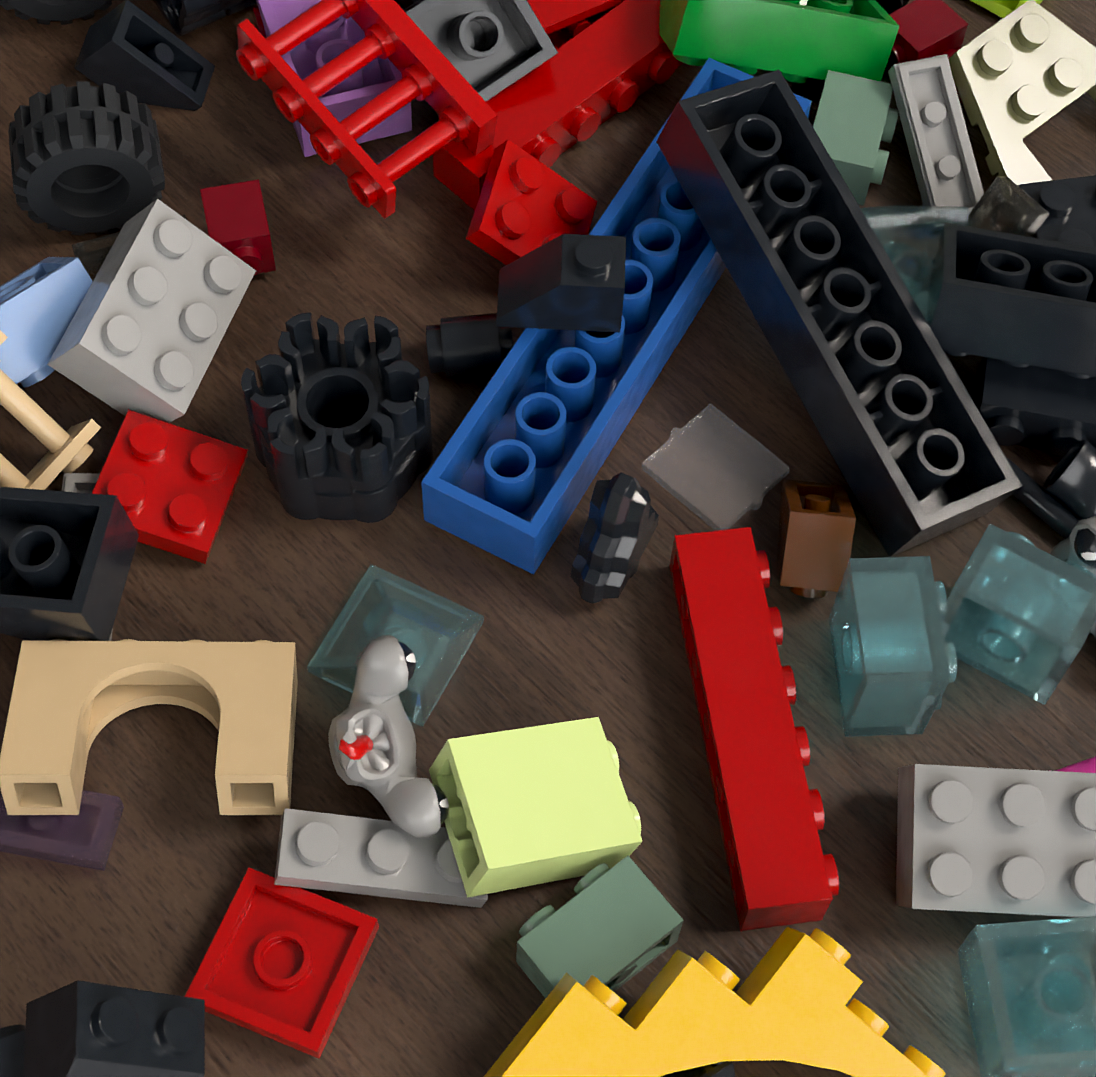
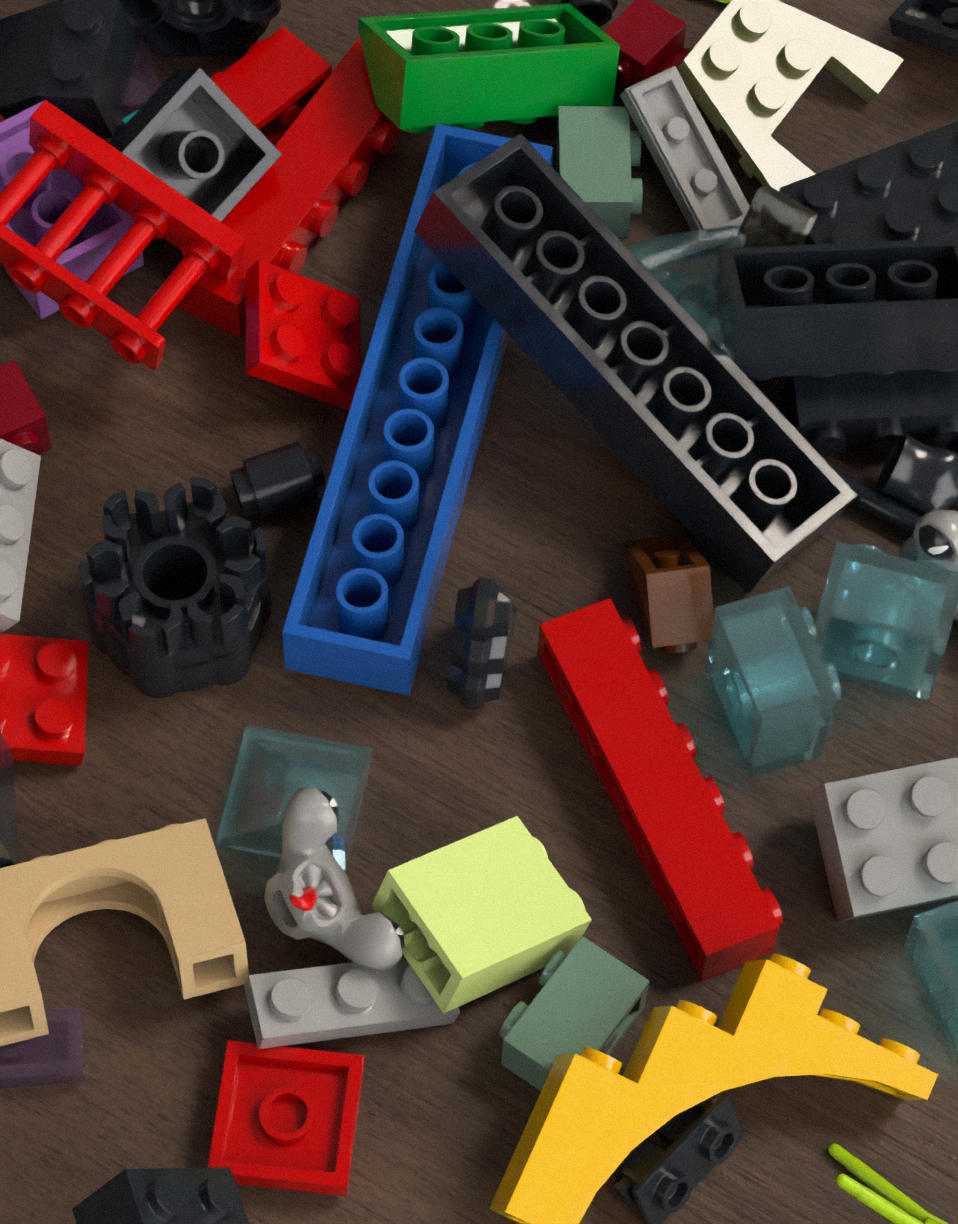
camera: 15 degrees left, 0 degrees up
(565, 285) = (367, 402): black slope -> none
(715, 468) = (555, 546): clear piece -> none

